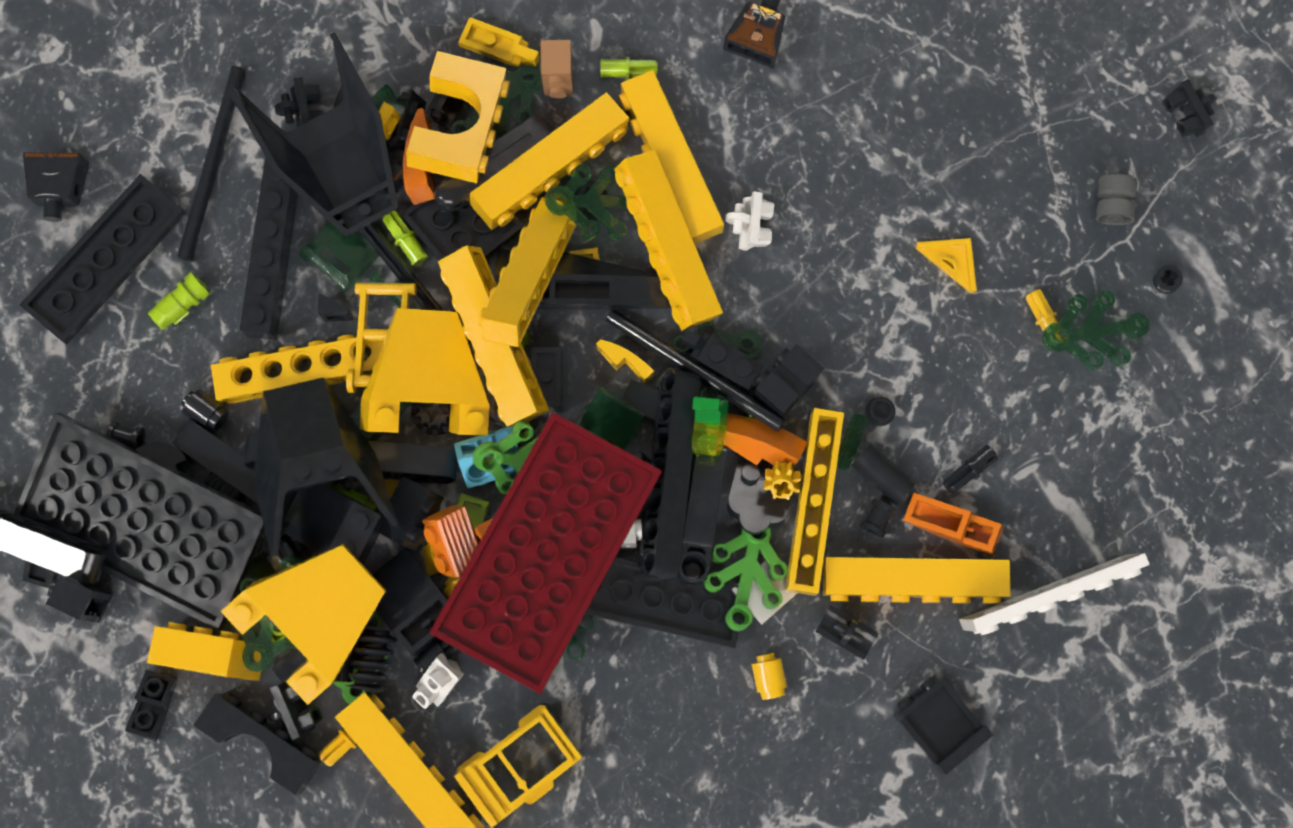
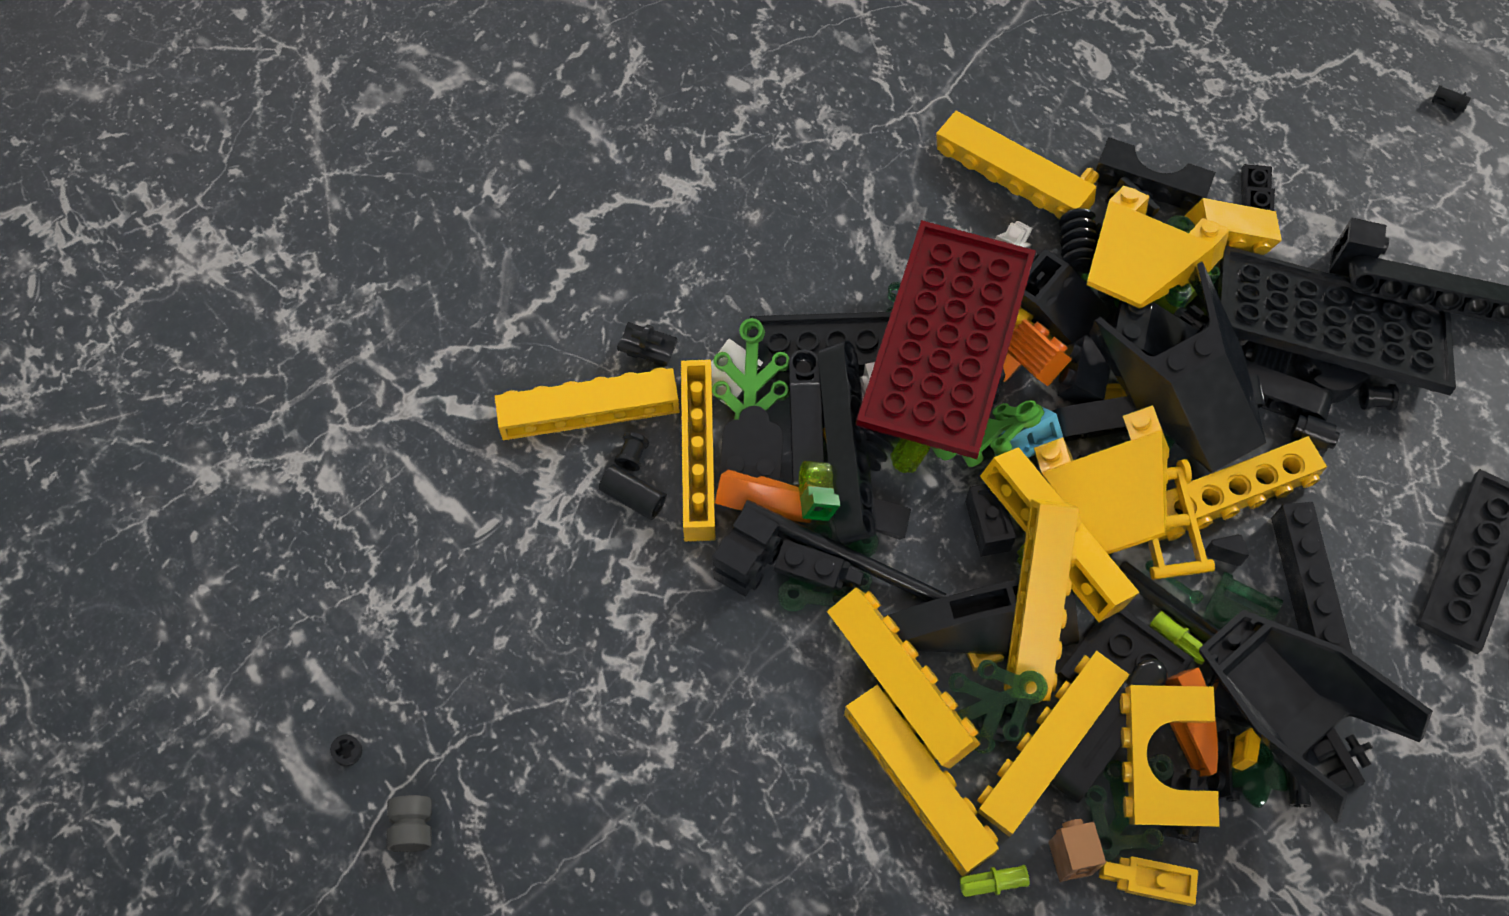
camera: 170 degrees right, 15 degrees down
(176, 303) = (1382, 530): lime axle -> none
(210, 166) = (1413, 680): black piece -> none
(476, 508) = (1026, 389): lime tile -> none
(486, 792) = (945, 165): yellow piece -> none
(611, 418) = (915, 494): clear green piece -> none
(618, 356) = (925, 557): yellow slope -> none
(747, 221) = (819, 723): white hips -> none
(769, 676) = (713, 300): yellow brick -> none
(782, 480) = (734, 454): yellow gear -> none
(851, 441) = (669, 520): clear green axle -> none
(880, 411) = (644, 554): black plate -> none
(941, 724) = (545, 289): black panel -> none
(953, 258) = (587, 730): yellow tile -> none
(954, 524) = (555, 459): orange slope -> none
(970, 469) = (544, 513): black axle -> none
(1041, 310) = (478, 680): yellow axle -> none
(1044, 598) = (450, 406): white plate -> none
(1092, 333) = (428, 669): clear green plant -> none

